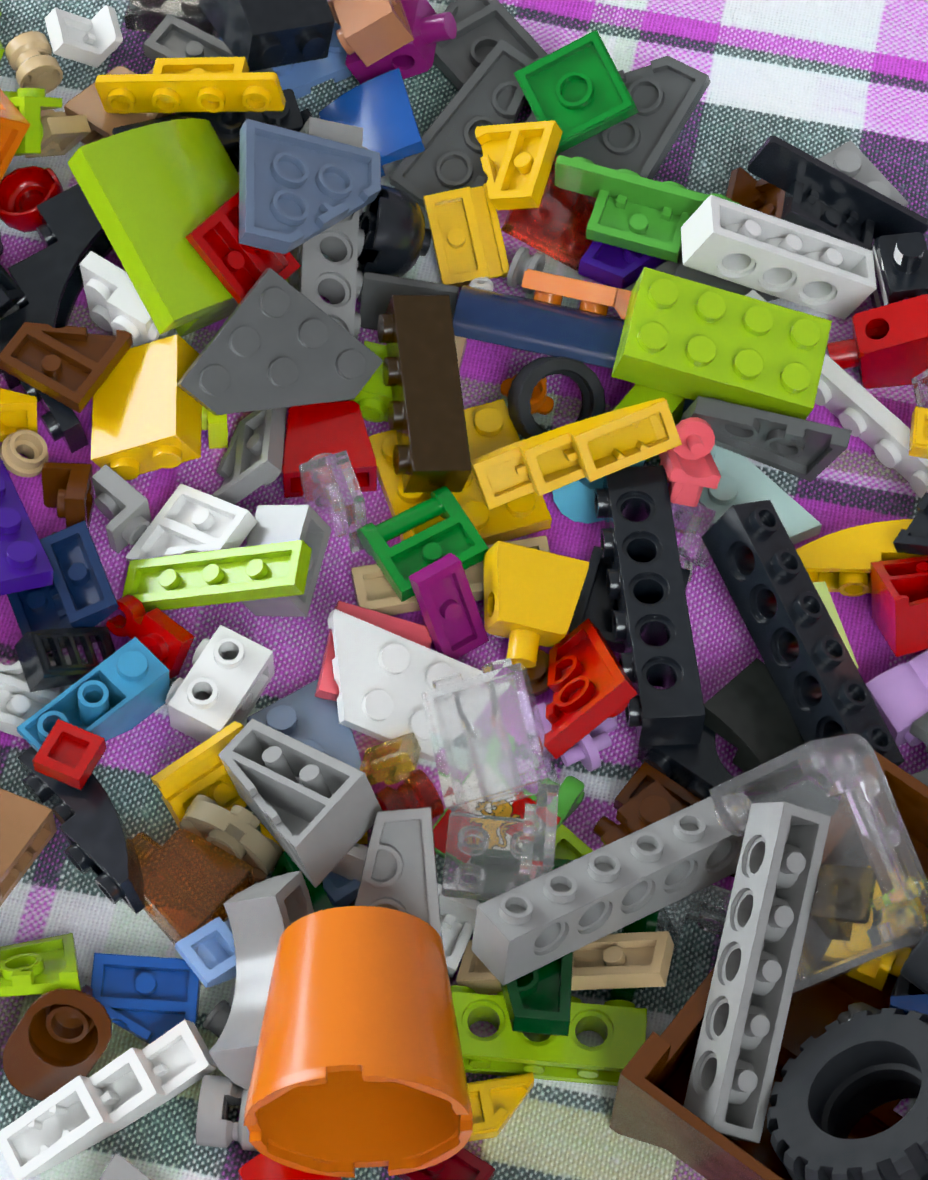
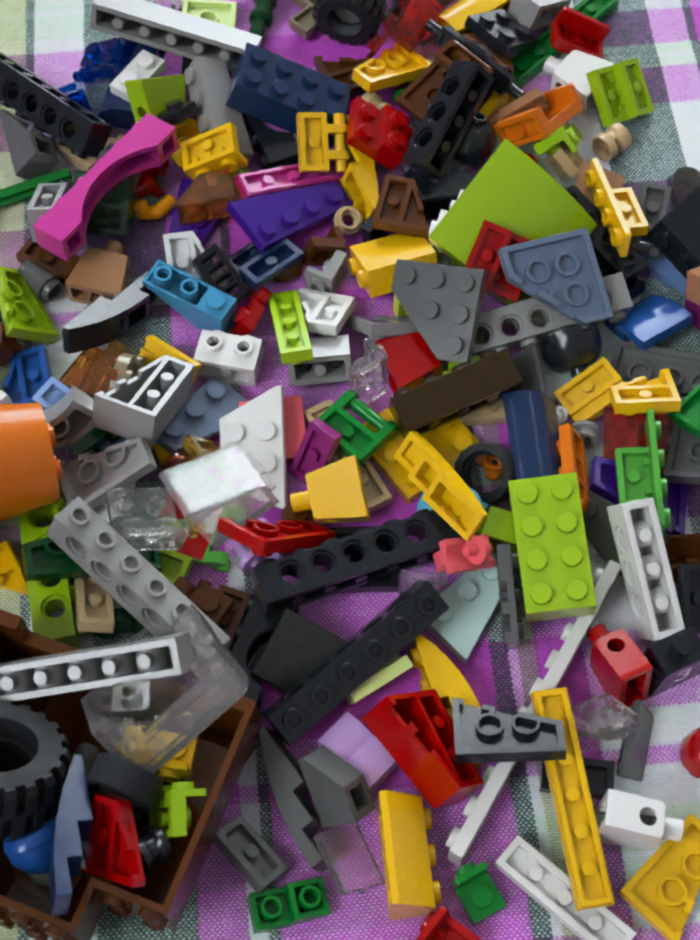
camera: 75 degrees right, 0 degrees up
(69, 754) = (142, 283): red plate -> none
(83, 38) = (641, 157): white bracket -> none

